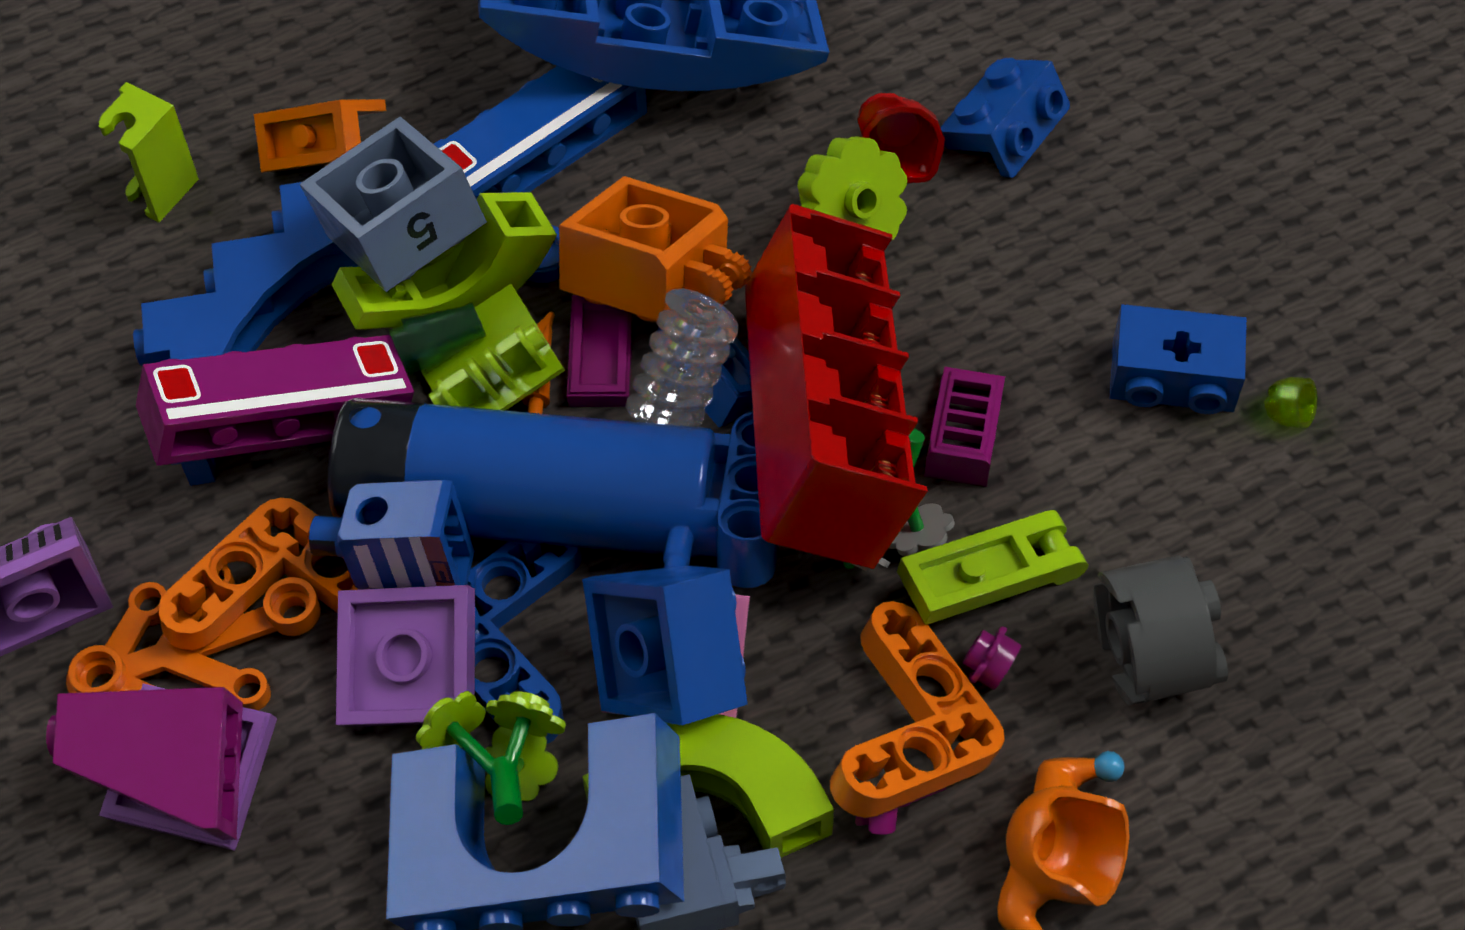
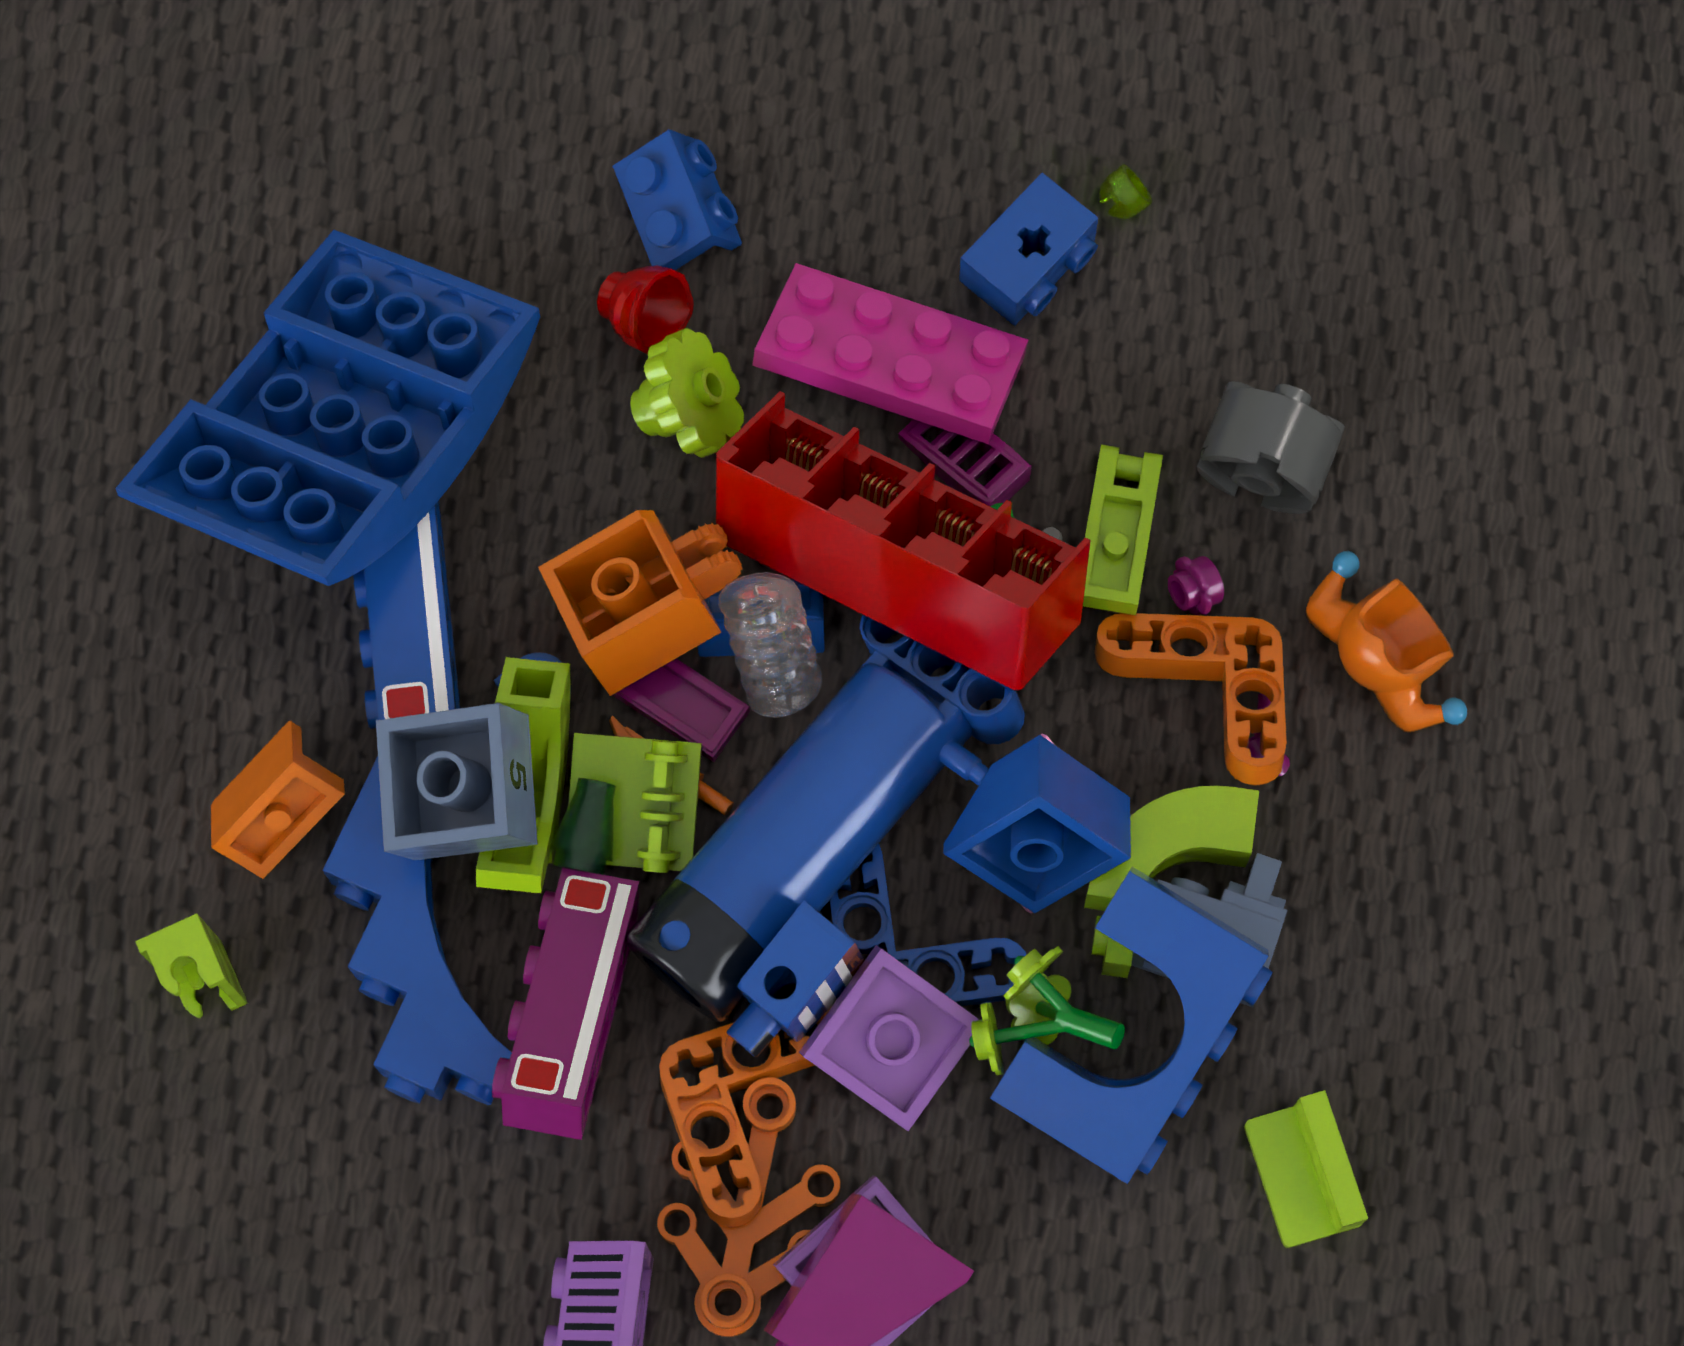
camera: 55 degrees left, 15 degrees up
(1005, 318) = (890, 353): none -> dark pink plate

